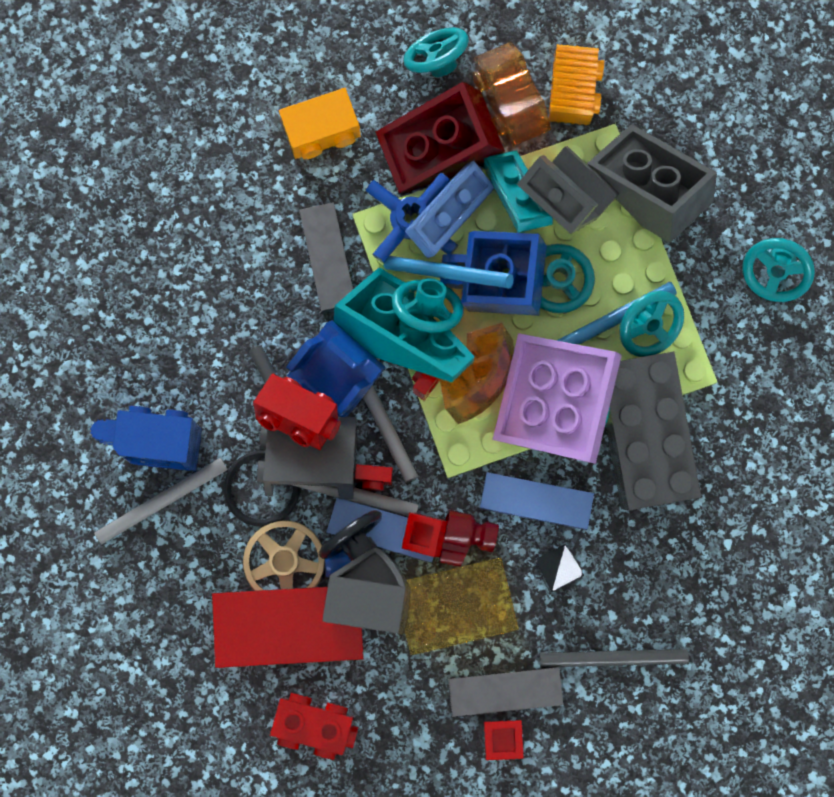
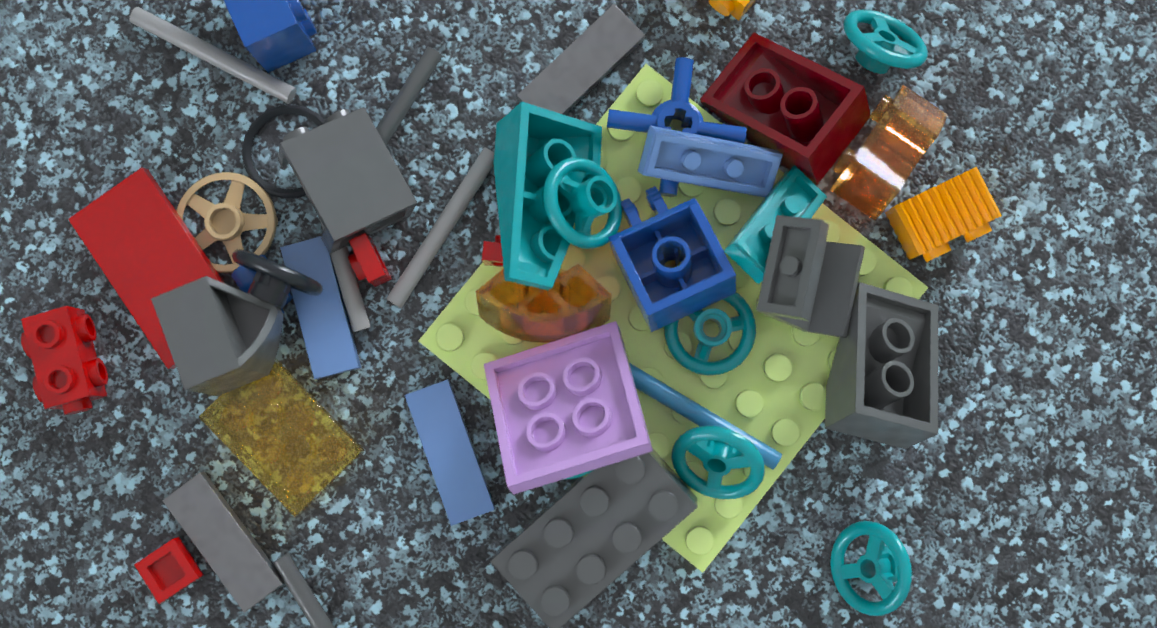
camera: 55 degrees right, 5 degrees up
(296, 412) = (375, 128): red brick -> none
(336, 367) = (451, 147): blue panel -> none
(424, 534) = (333, 353): red plate -> none
(449, 271) = (635, 204): dark azure bar -> none
(462, 533) = (364, 392): dark red piece -> none
(558, 568) = (388, 519): black slope -> none

